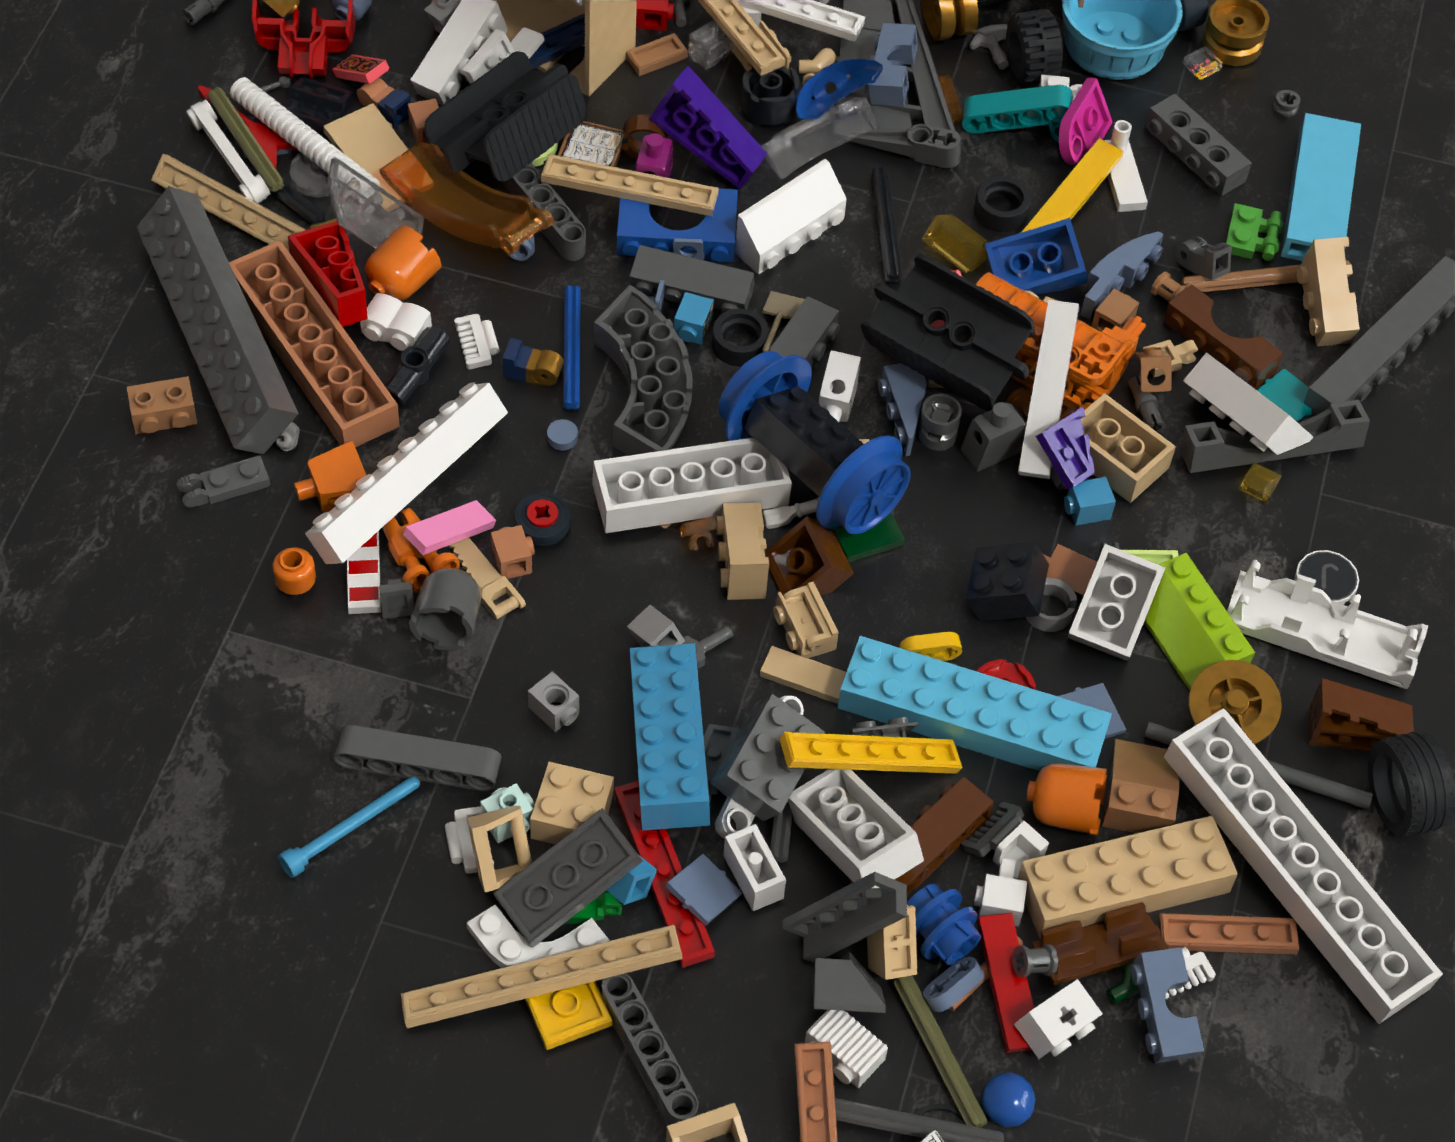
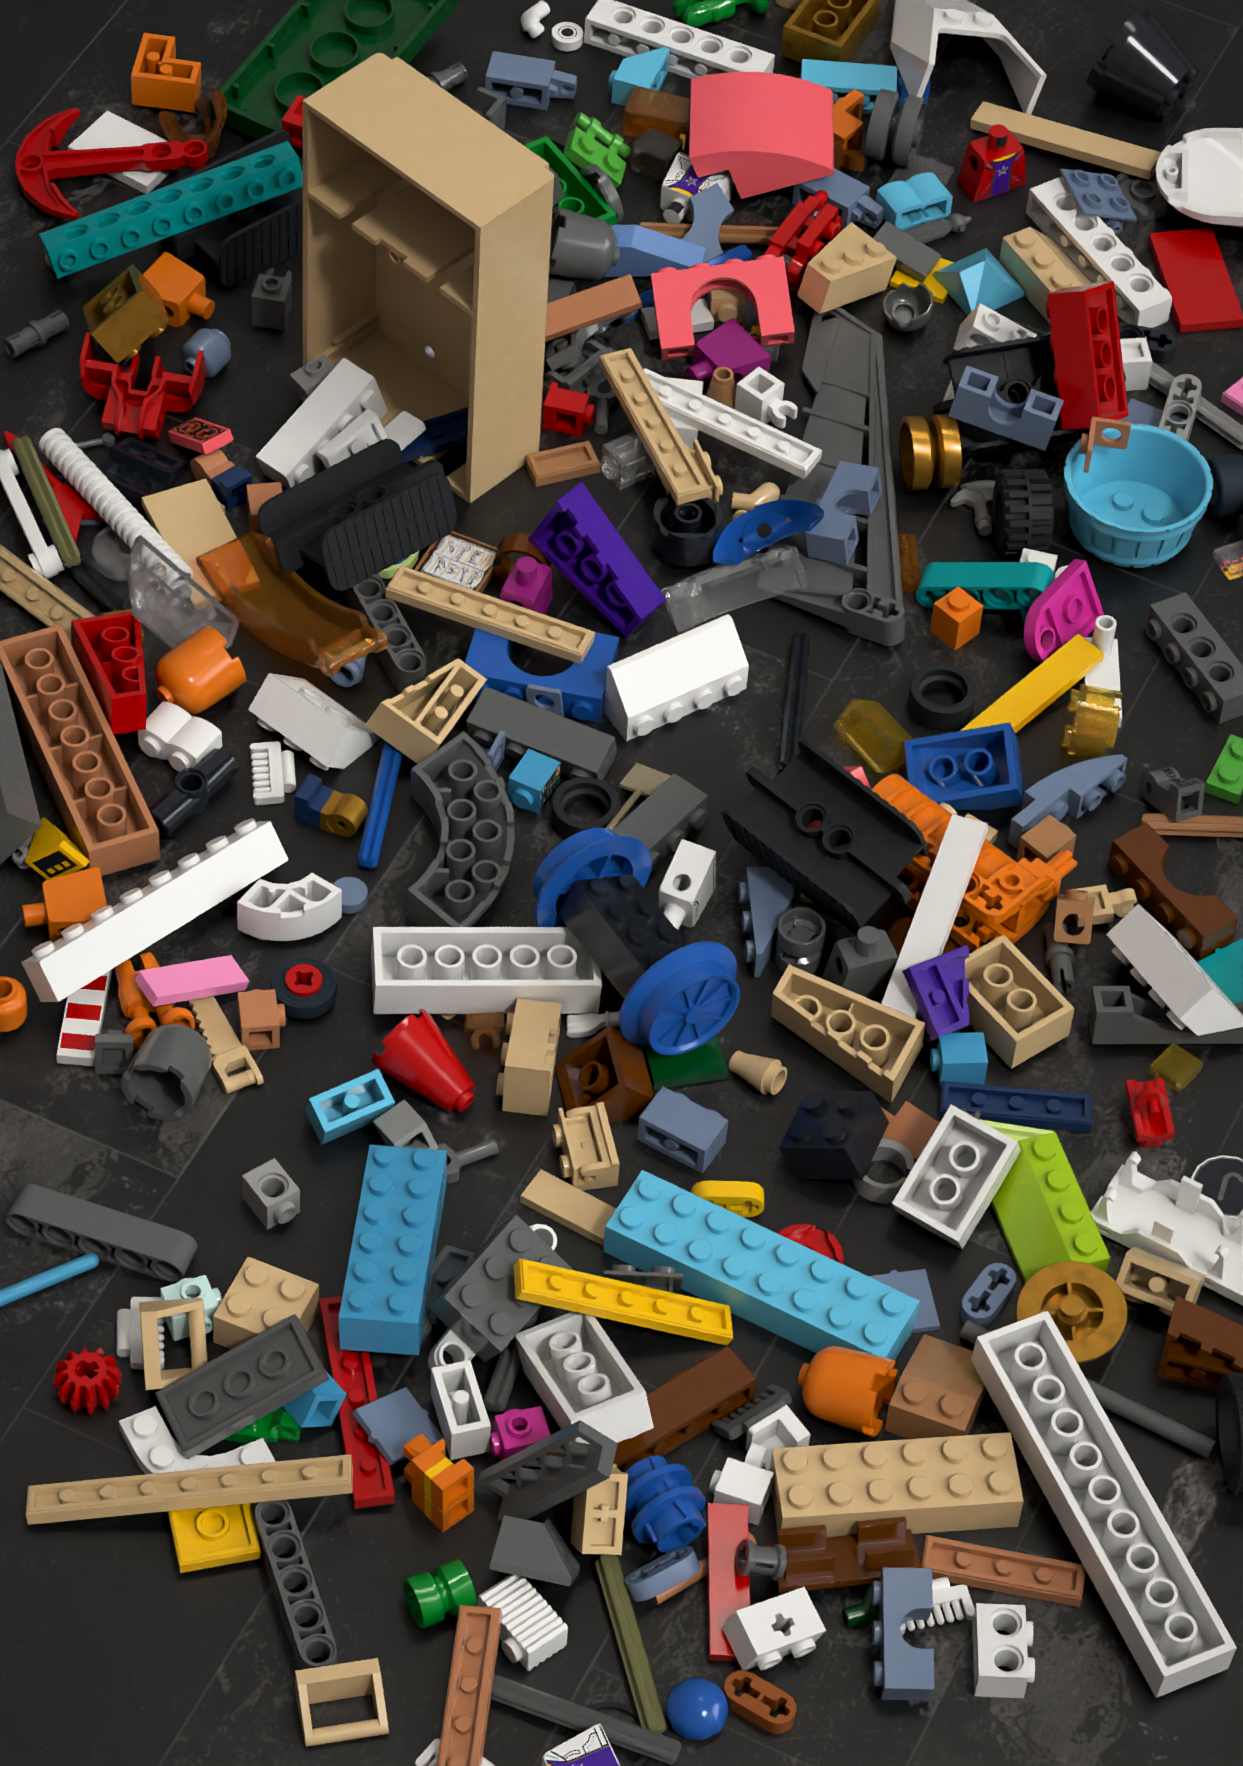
camera: 10 degrees right, 5 degrees down
(312, 435) = (54, 852): none -> yellow slope
(432, 890) = (87, 1380): none -> red gear
(501, 293) = (311, 721): none -> white slope
(518, 454) = (289, 909): none -> white brick
(597, 272) = (427, 711): none -> tan wedge
(604, 616) = (349, 1106): none -> medium azure brick
(660, 570) = (426, 1063): none -> red cone
(749, 937) = (438, 1485): none -> orange hips
(774, 1032) = (434, 1595): none -> green wheel
(809, 882) = (517, 1430): none -> dark pink brick
(880, 594) = (682, 1129): none -> sand blue brick
(932, 536) = (761, 1072): none -> tan cone
(996, 489) = (849, 1029): none -> tan wedge
(999, 138) = (956, 618): none -> orange brick
(1058, 1083) = (759, 1702): none -> dark orange beam
(1128, 208) = (1093, 721): none -> clear yellow brick
(1143, 533) = (1020, 1105): none -> dark blue tile
(1153, 696) = (981, 1291): none -> sand blue beam
(1162, 283) = (1122, 821): medium nougat bush -> none
(1238, 1005) = (998, 1650): none -> white brick
(1251, 522) = (1149, 1112): none -> red hips
(1296, 665) = (1157, 1280): none -> tan brick

